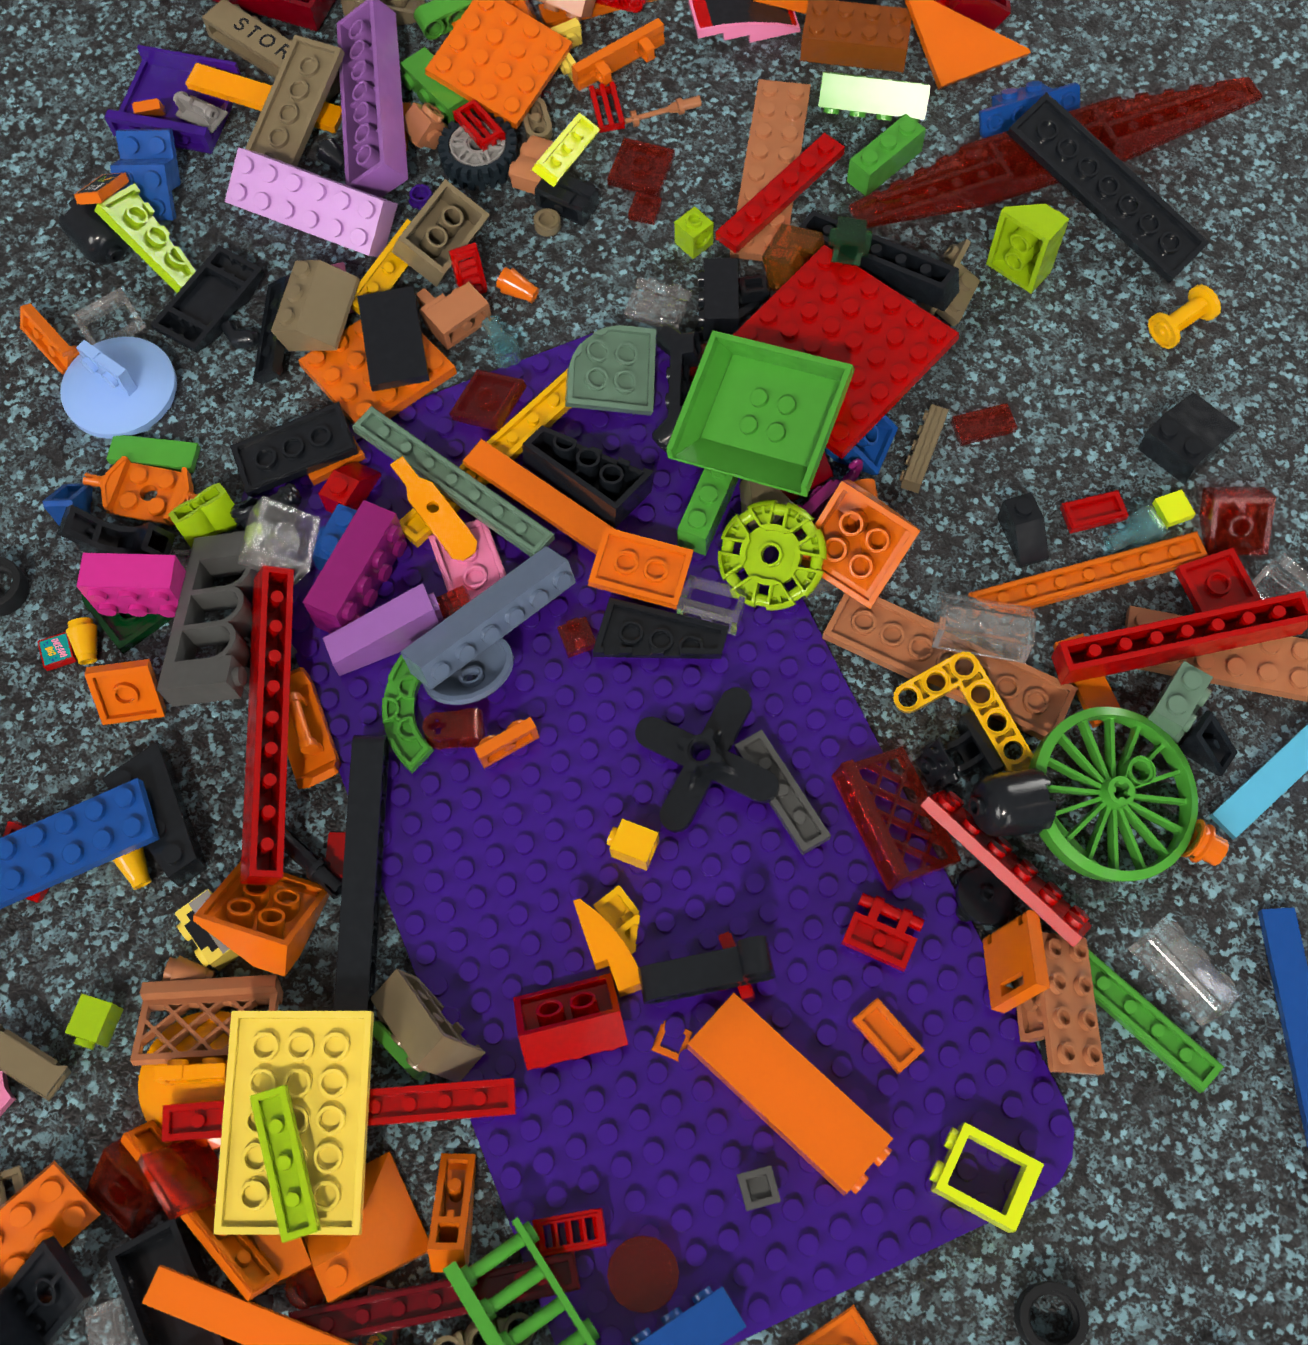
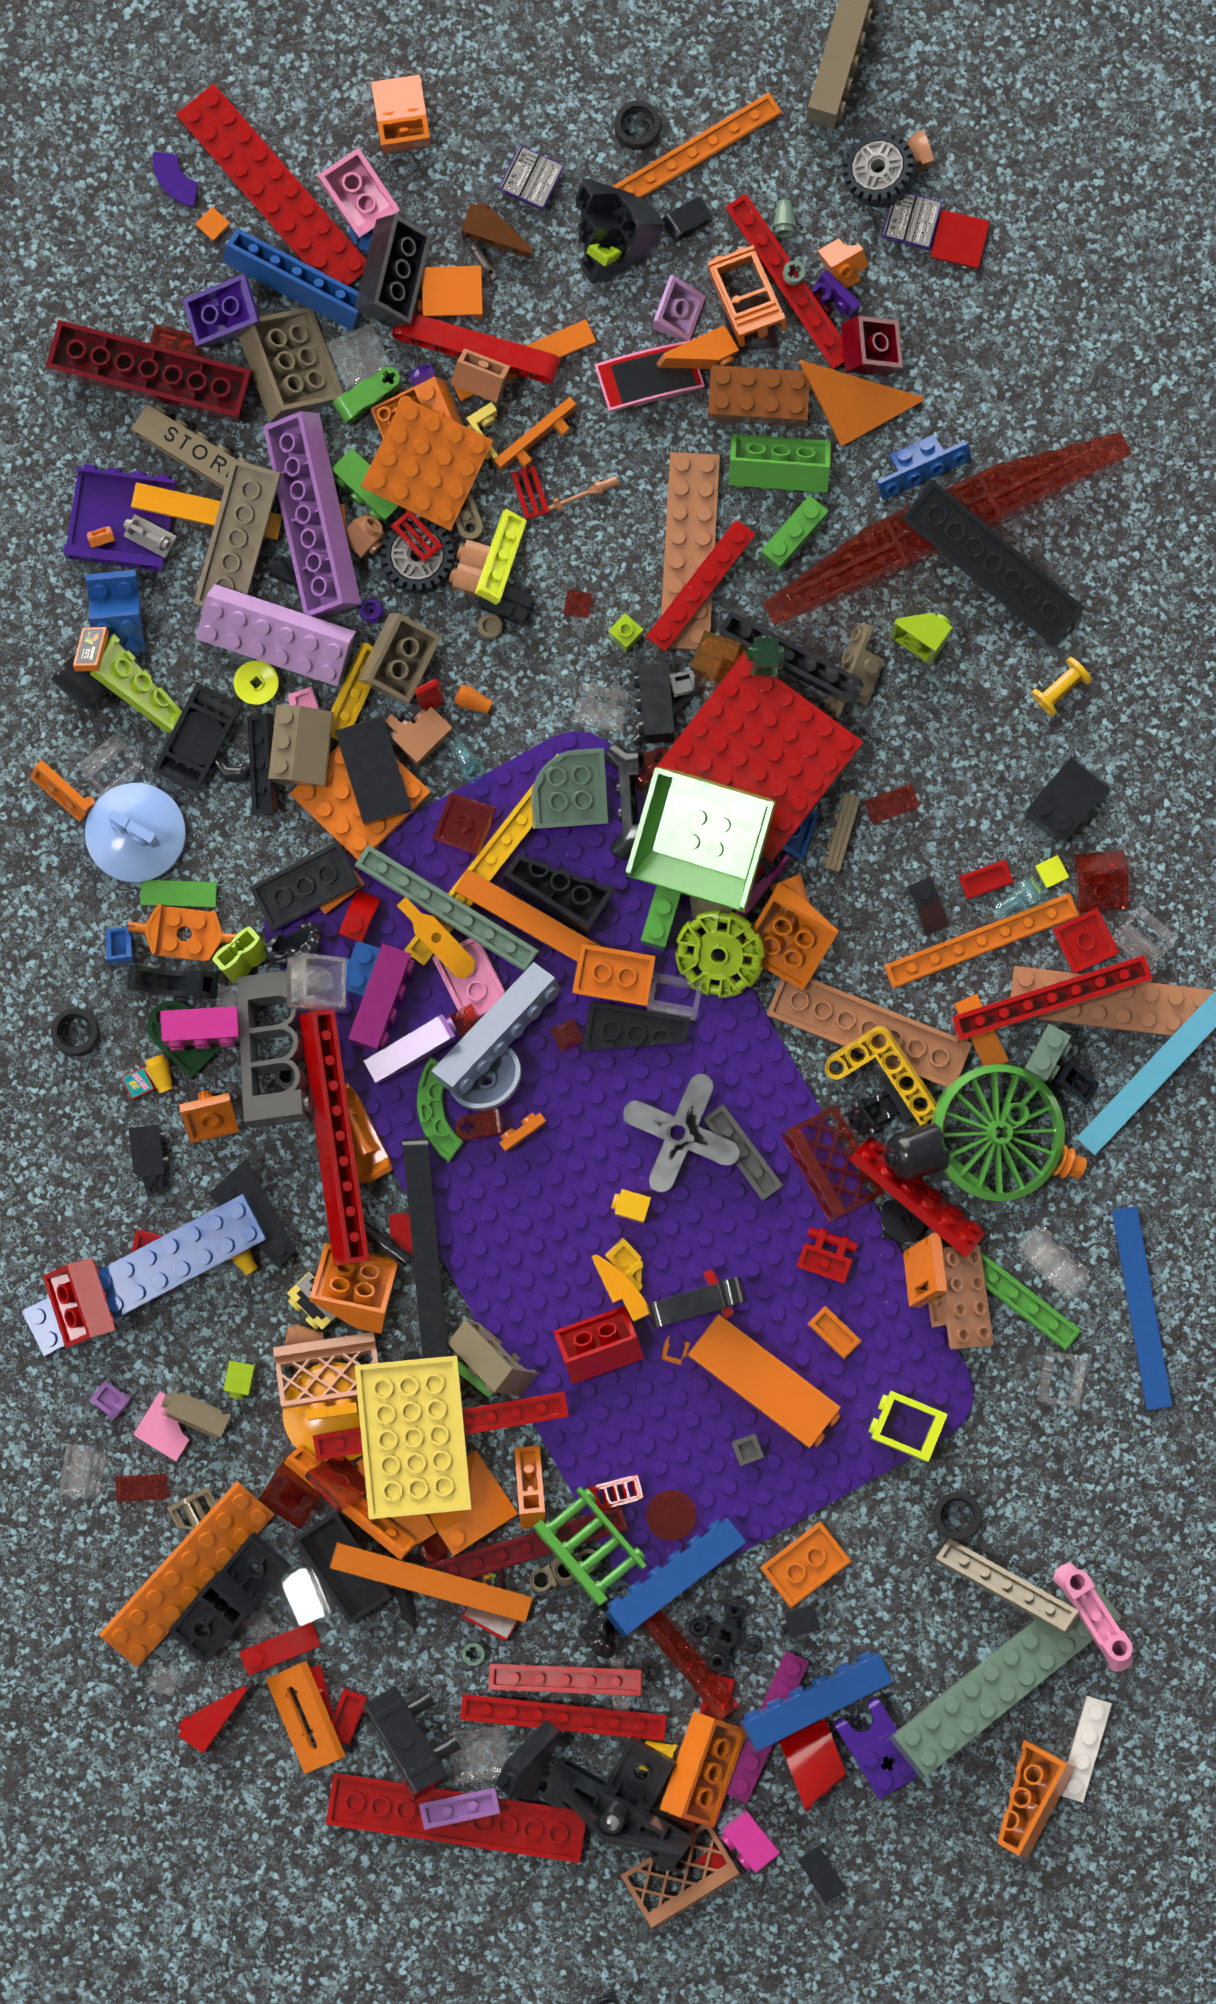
camera: 10 degrees left, 15 degrees up
(46, 733) = (149, 1157): none -> black hinge
(281, 250) = (250, 672): none -> neon yellow piece
(285, 1163) = (413, 1467): lime plate -> none
(641, 167) = (569, 558): clear red tile -> none
(983, 627) = (894, 997): clear slope -> none
(1220, 1134) = (1076, 1380): none -> clear tile

